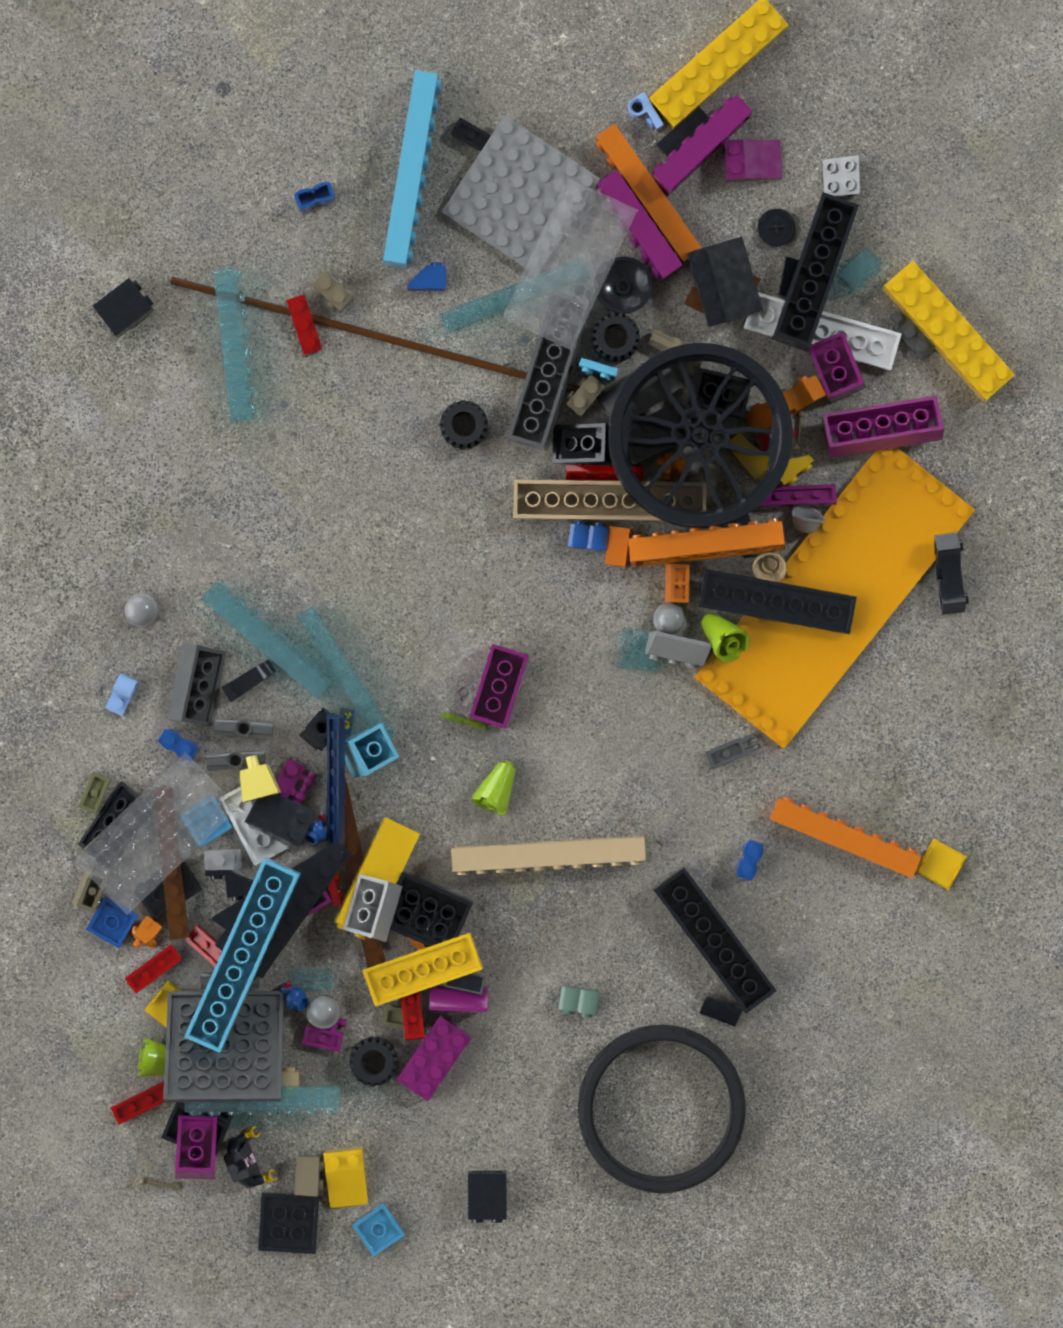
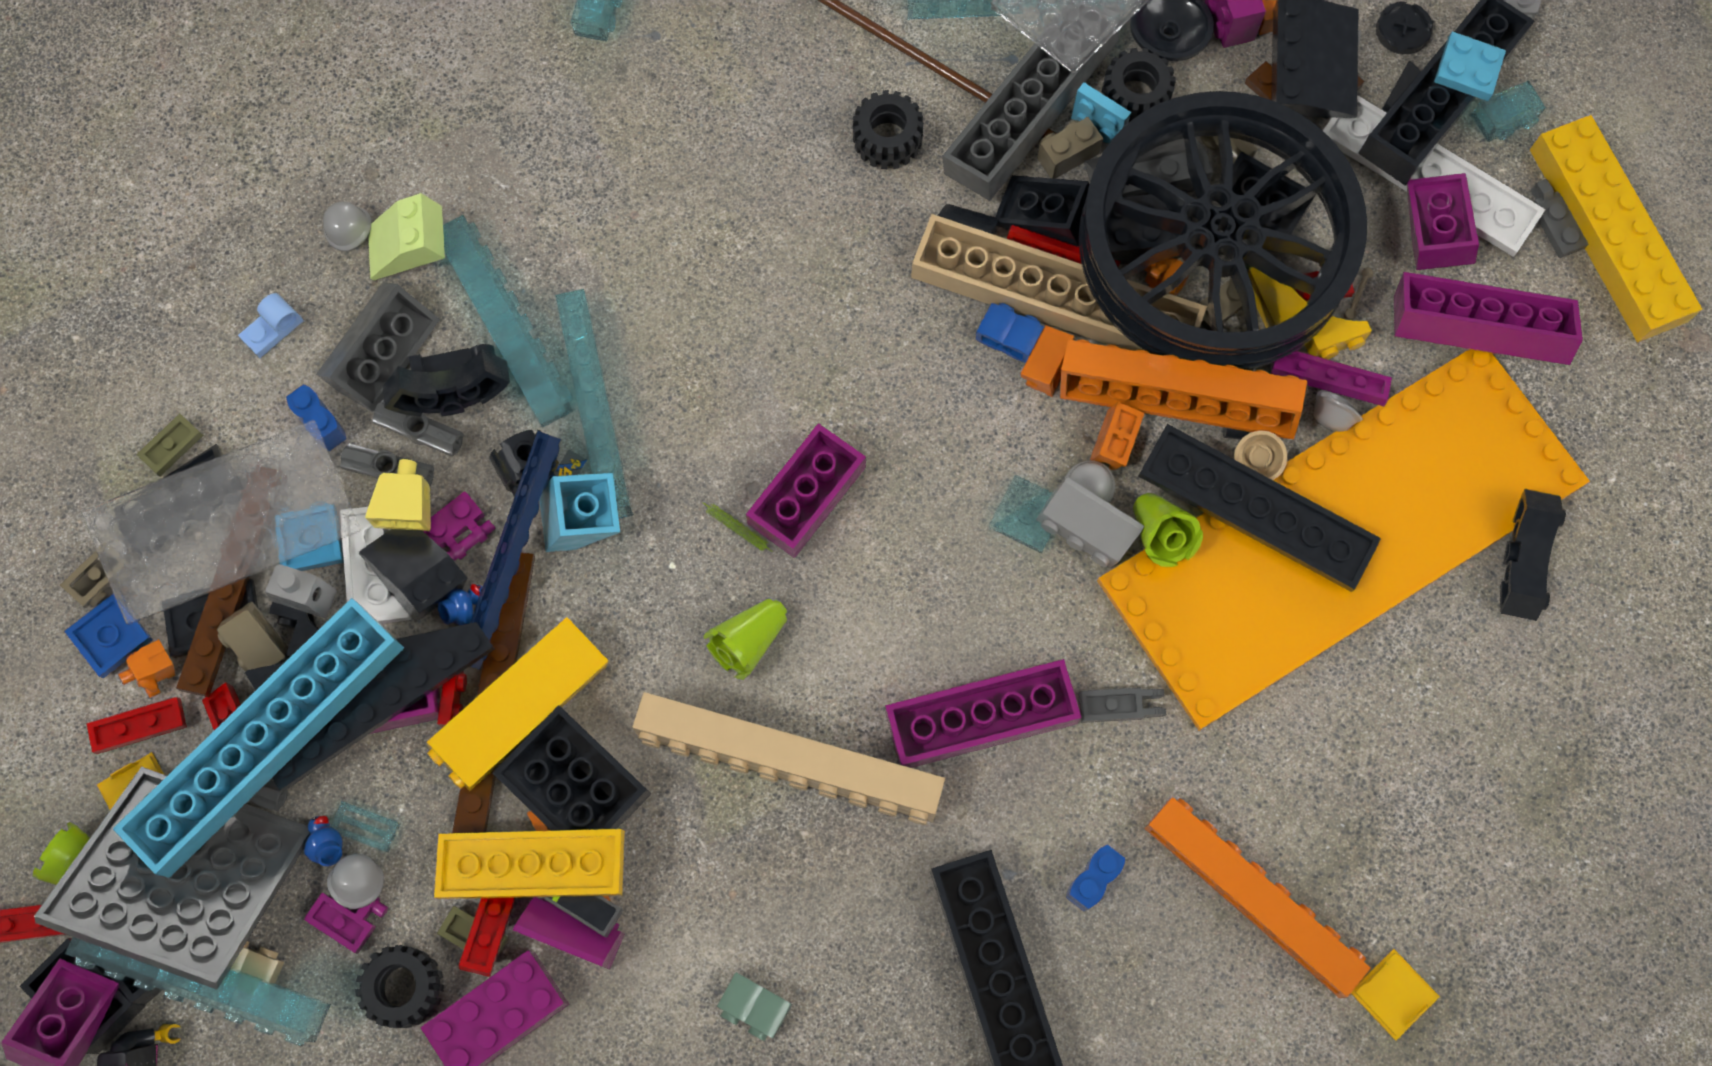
camera: 15 degrees right, 15 degrees down
(185, 610) = (406, 236): none -> yellowish green slope
(203, 895) = (252, 638): none -> dark tan brick
(255, 701) = (447, 390): none -> black brick
(372, 907) = (490, 739): light grey slope -> none
(536, 470) = (970, 218): none -> black slope
(652, 787) = (982, 714): none -> magenta brick
(798, 397) = (1386, 239): orange brick -> none
(825, 259) = (1470, 66): none -> medium azure plate

